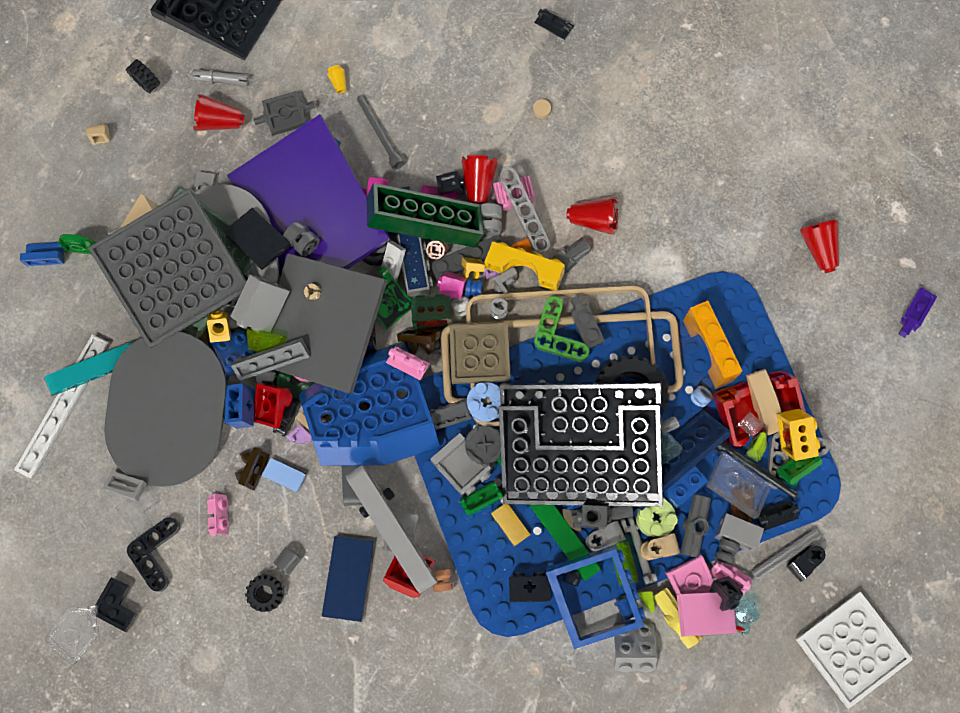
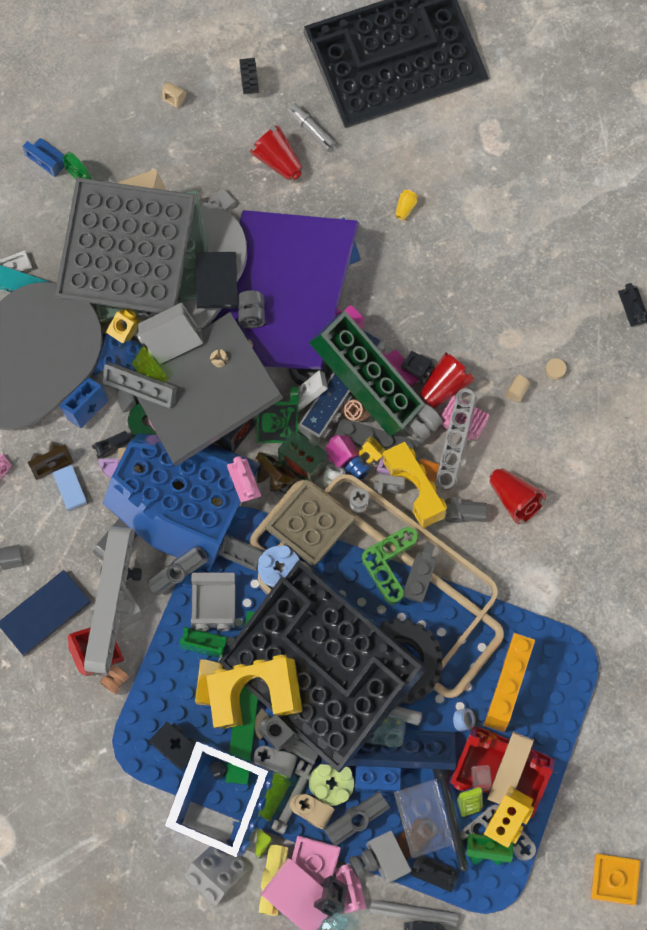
camera: 40 degrees right, 5 degrees down
(270, 404) = (109, 421): red slope -> none
(283, 113) = (335, 197): dark grey plate -> none
(395, 160) = (391, 311): dark grey piece -> none
(420, 455) = (186, 563): none -> dark grey piece
(483, 445) = (244, 599): dark grey tile -> none
(528, 516) = (227, 685): none -> yellow arch
(529, 143) = (517, 388): none -> tan brick
(888, 414) = (615, 879): none -> light orange tile

